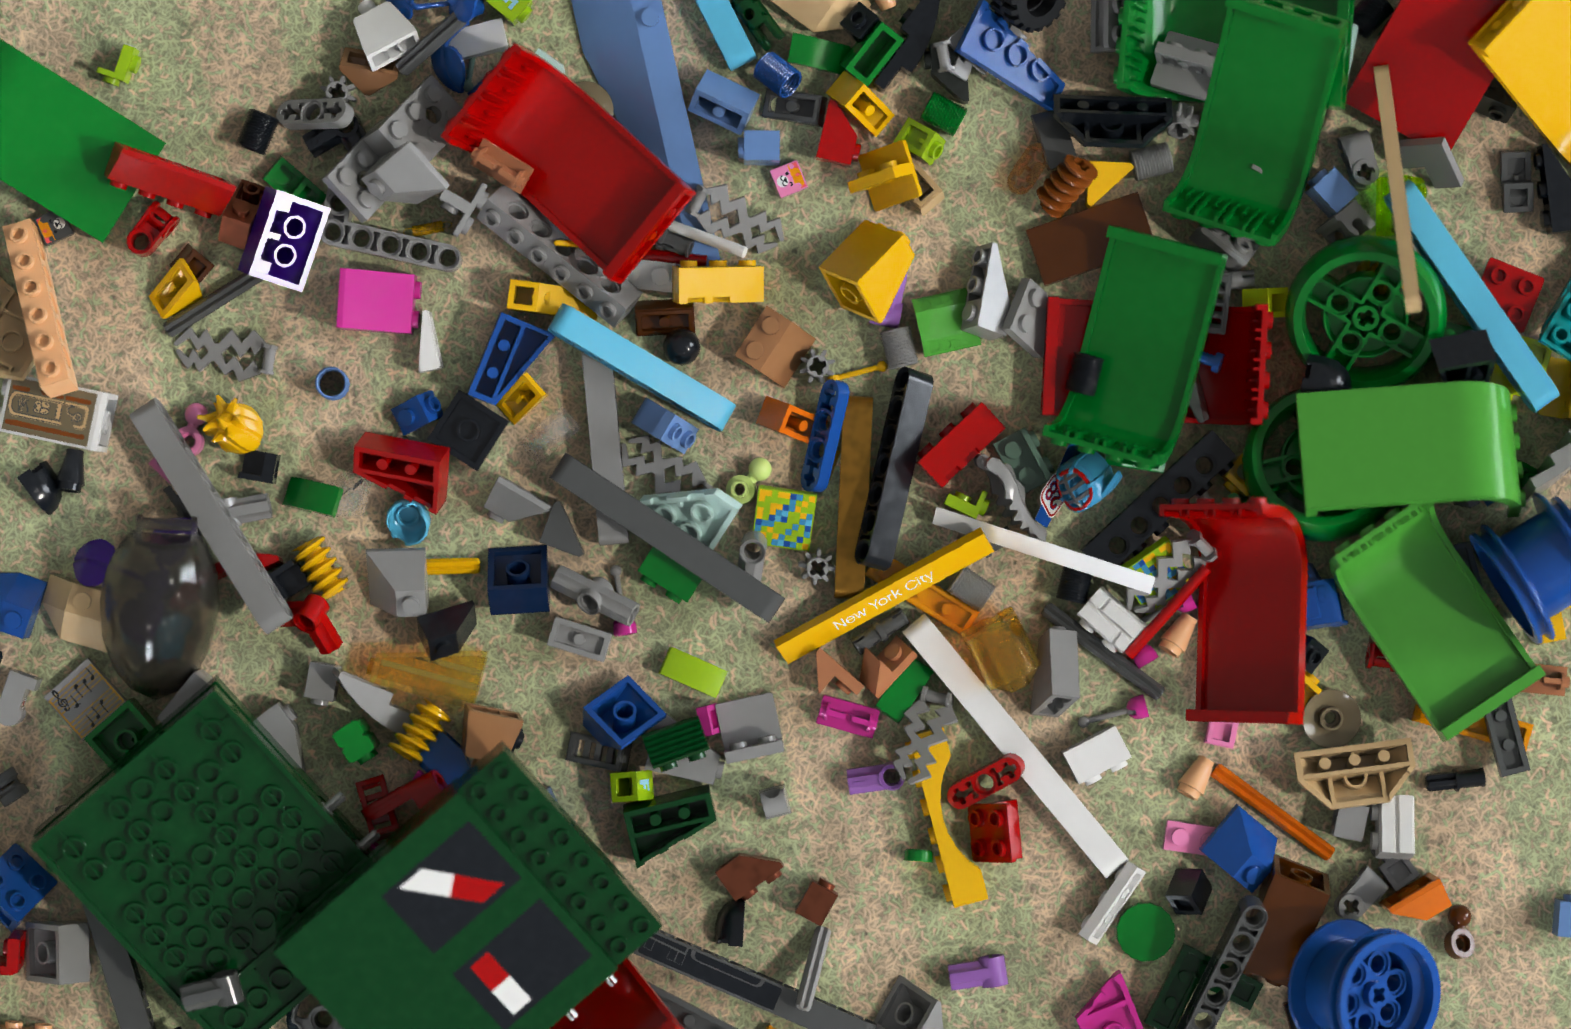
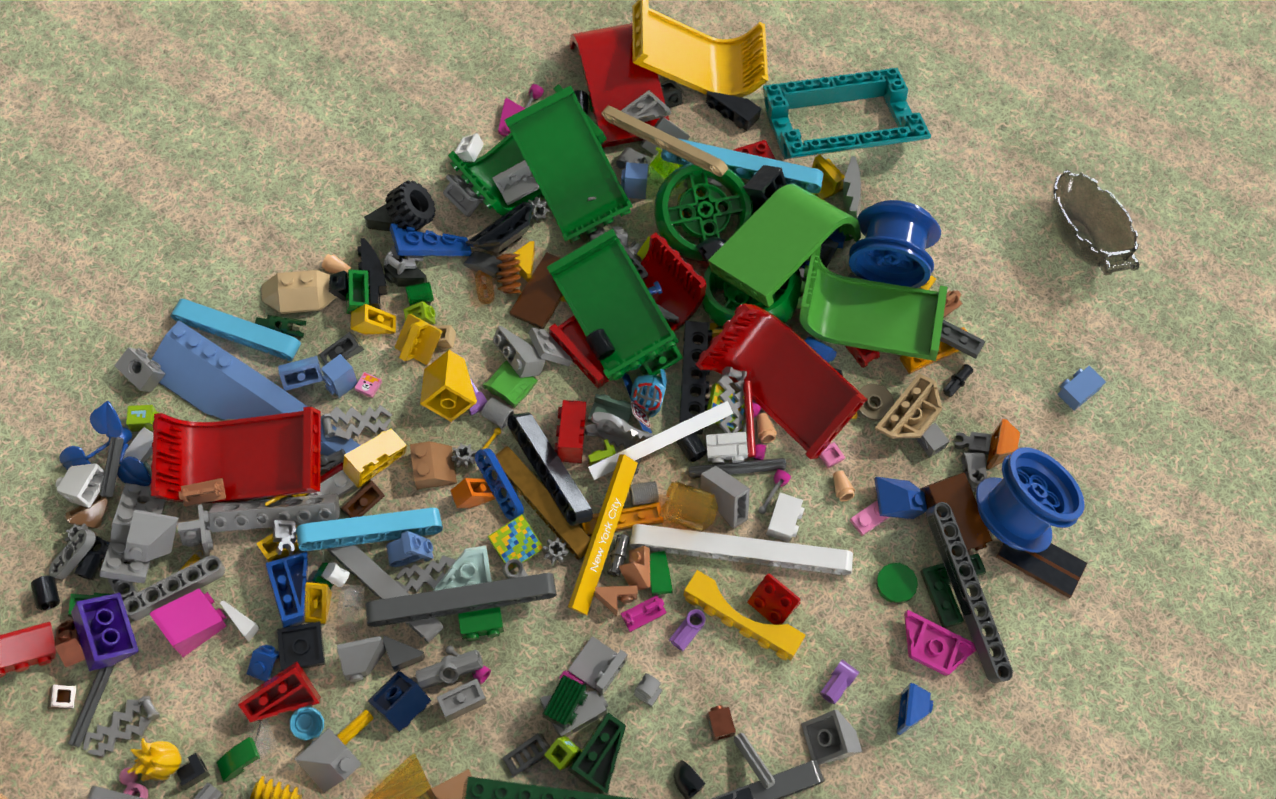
camera: 50 degrees left, 25 degrees down
(153, 228) = (20, 693): red piece -> none
(176, 290) = (61, 715): yellow slope -> none
(318, 383) = (202, 696): medium blue piece -> none
(446, 629) = (379, 762): black slope -> none
(546, 298) = (285, 533): none -> flat silver plate
(559, 382) = (331, 574): none -> white leg
(621, 714) = (520, 719): blue slope -> none
(681, 346) = (382, 504): black piece -> none
(692, 672) = (540, 662): lime slope -> none
(708, 239) = (348, 440): white bar -> none
(746, 872) = (668, 743): copper slope -> none
(759, 470) = (480, 531): yellowish green plate -> none
(777, 74) = (318, 340): blue piece -> none
(817, 53) = (330, 317): green slope -> none
(837, 138) = (376, 345): red slope -> none
(918, 855) = (749, 649): green tile -> none
(919, 745) = (691, 563): light grey piece -> none
(972, 797) = (734, 591): red beam -> none
(1111, 902) = (866, 582): white plate -> none
(1151, 161) = (541, 235): light grey piece -> none
(1189, 891) = (896, 542): black panel -> none
(1272, 812) = (894, 470): orange axle -> none
(1349, 221) = (654, 181): light grey hinge -> none
(1393, 828) = (957, 423): white brick -> none
(1432, 110) = (647, 108): none -> light grey wing
(1459, 917) = (1028, 440): reddish brown plate -> none
(1516, 182) = (709, 119): dark grey slope -> none

